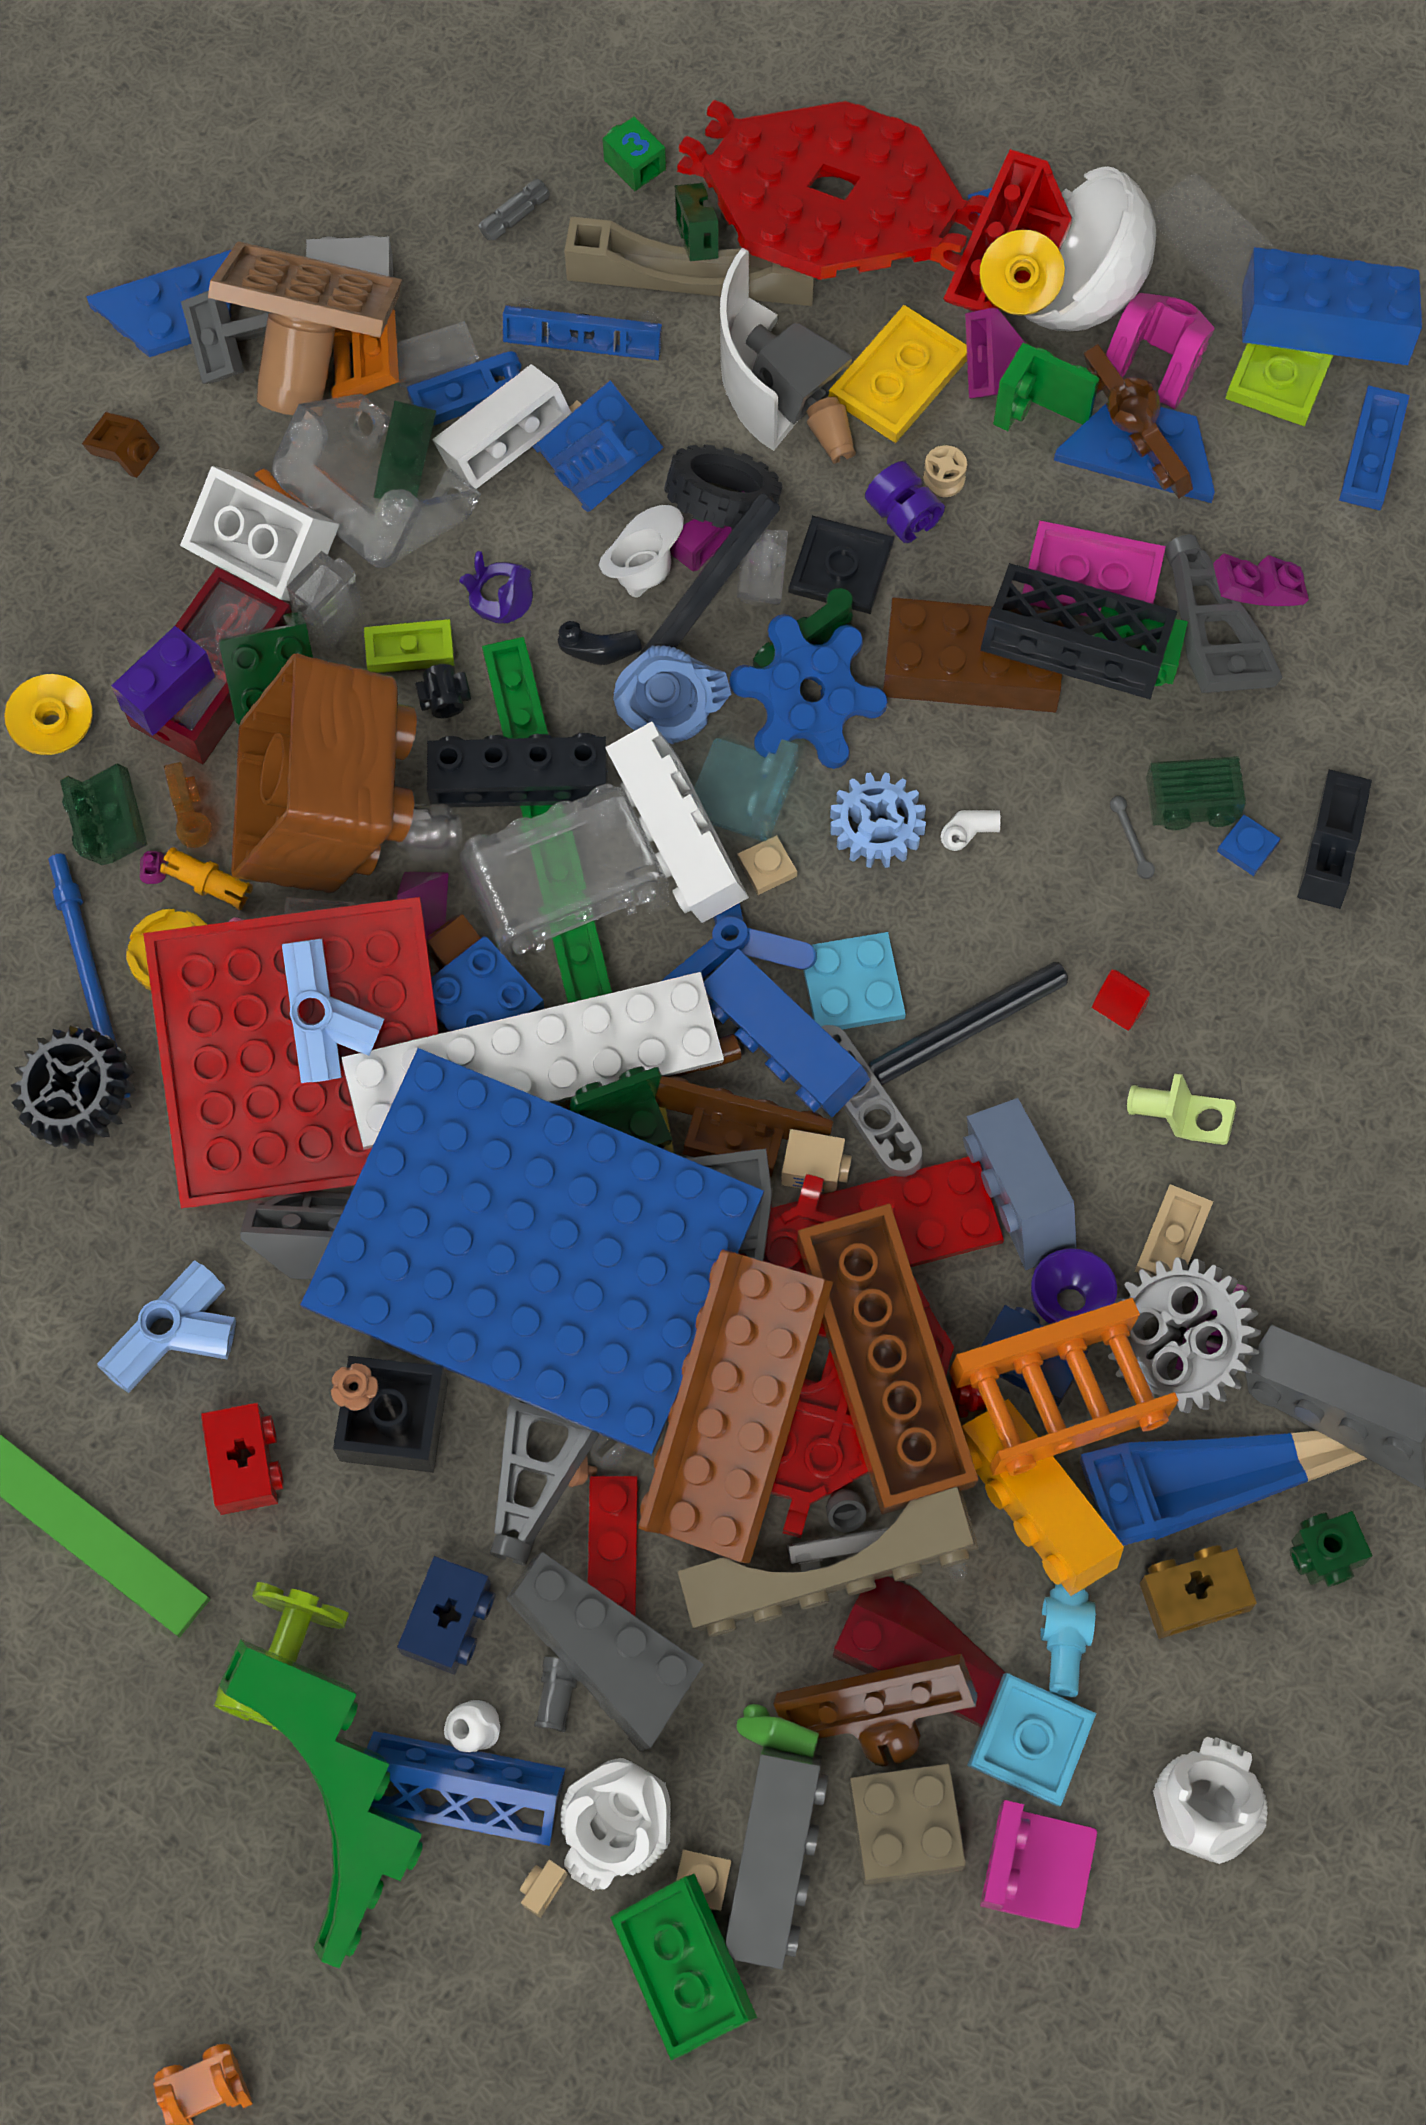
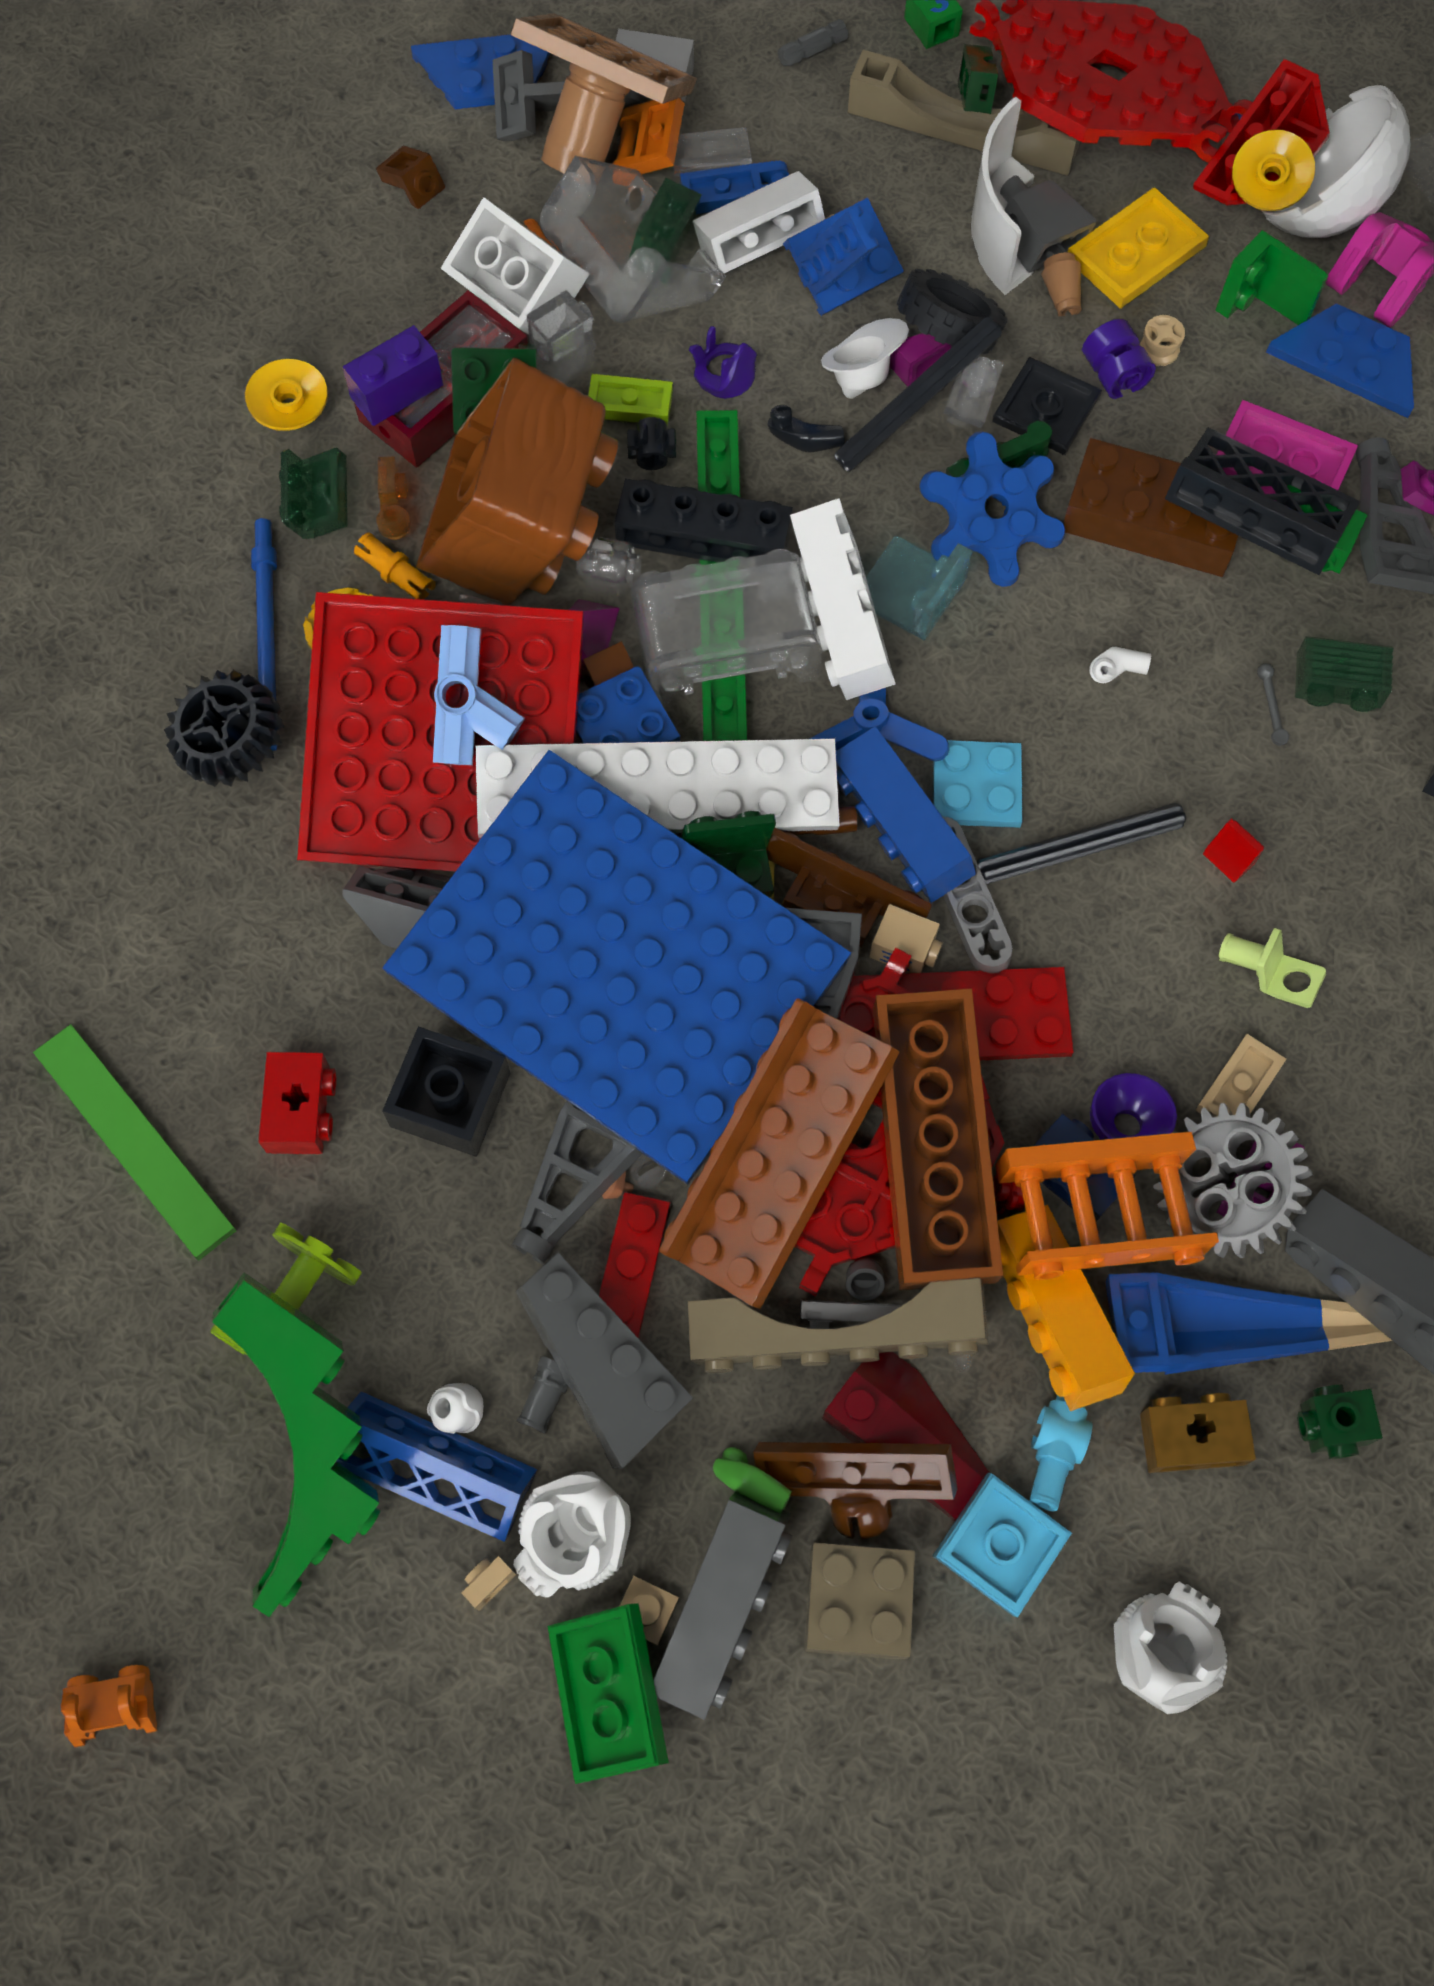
camera: 10 degrees right, 0 degrees up
(150, 867) = (345, 549): magenta rock -> none
(191, 1332) = (277, 975): light blue piece -> none
(355, 1399) = (417, 1067): nougat plate -> none
(442, 1588) = (456, 1269): dark blue brick -> none
(582, 331) = (851, 157): blue piece -> none
(670, 692) = (864, 481): medium blue helmet -> none
(767, 865) = (919, 660): tan plate -> none
(873, 801) = (1034, 643): light blue gear -> none
(990, 350) = (1226, 235): magenta slope -> none
(1022, 1181) = (1103, 1000): sand blue wedge -> none
(1038, 1867) = (983, 1674): dark pink bracket -> none
(1135, 409) = (1355, 311): reddish brown plate -> none
(1248, 845) = (1384, 733): blue plate -> none

